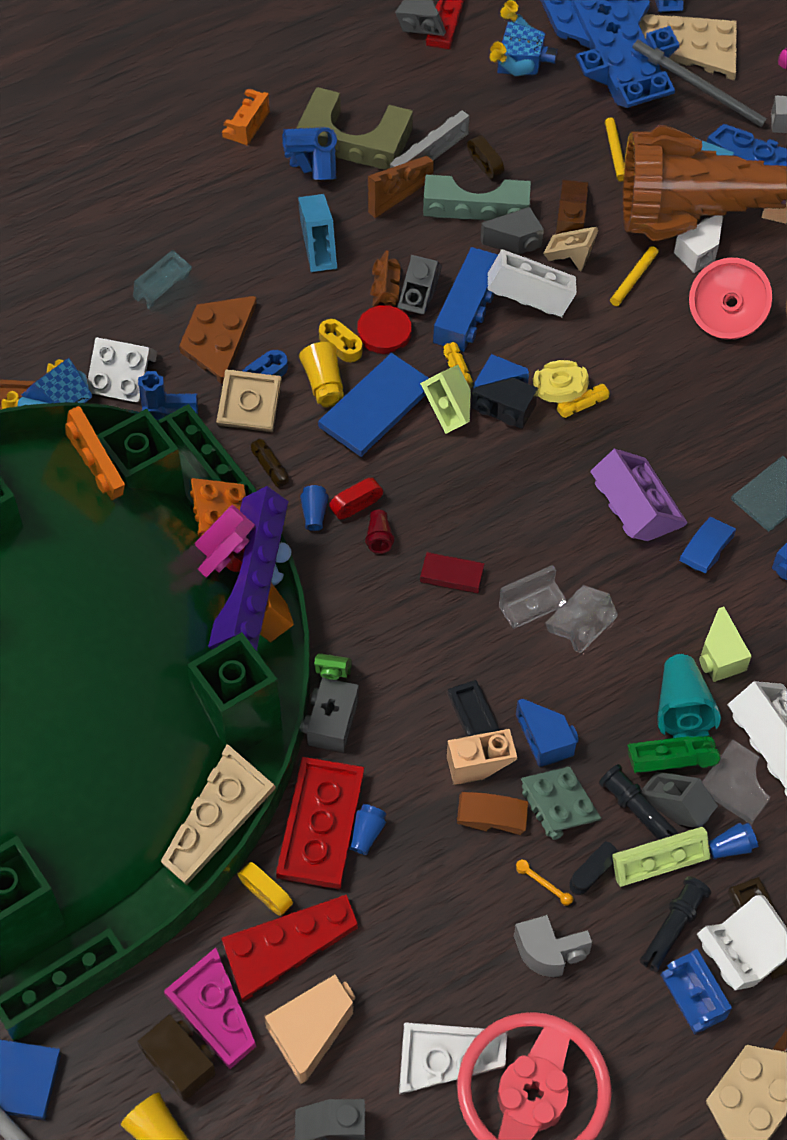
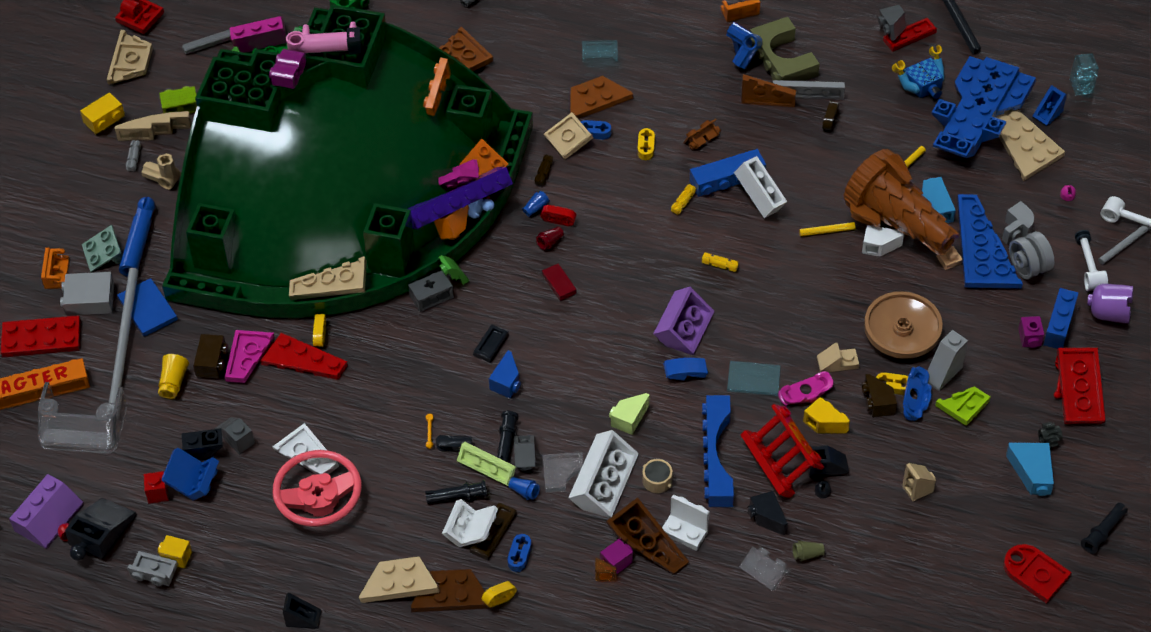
camera: 50 degrees right, 5 degrees down
(58, 385) = (487, 63): torso -> none
(117, 367) = (531, 75): white bracket -> none
(156, 398) = (527, 102): blue piece -> none
(311, 1024) = (271, 393): light nougat slope -> none
(318, 232) = (698, 85): dark azure slope -> none
(320, 823) = (372, 326): red plate -> none
(323, 372) = (615, 150): yellow plant -> none
(367, 827) = (386, 345): blue cone -> none
(374, 405) = (622, 184): blue tile -> none
(384, 329) = (673, 155): red tile -> none
(419, 284) = (713, 147): dark grey slope -> none
(448, 200) = (810, 144): sand green arch -> none
(449, 398) = (656, 205): yellowish green slope -> none
(480, 755) = (464, 357): light nougat slope -> none
(492, 810) = (444, 385): dark orange slope -> none
(499, 369) = (690, 218): blue slope -> none
(506, 400) = (682, 231): black slope -> none
(513, 232) = (793, 160): dark grey slope -> none
(531, 597) = (577, 320): clear panel -> none
(546, 953) = (394, 452): light grey brick -> none
(558, 801) = (476, 406): sand green hinge -> none
(561, 381) = (719, 244): light yellow tile -> none
(572, 206) = (835, 174): reddish brown slope -> none
(572, 244) = (812, 191): tan slope -> none
(583, 617) = (587, 348): clear bracket -> none
(657, 57) = (978, 132): dark grey bar -> none
(673, 753) = (547, 432): green hinge -> none
(685, 700) = (580, 415): teal cone -> none
(696, 991) = (431, 523): blue hinge -> none
(725, 281) = (846, 268): coral dish -> none

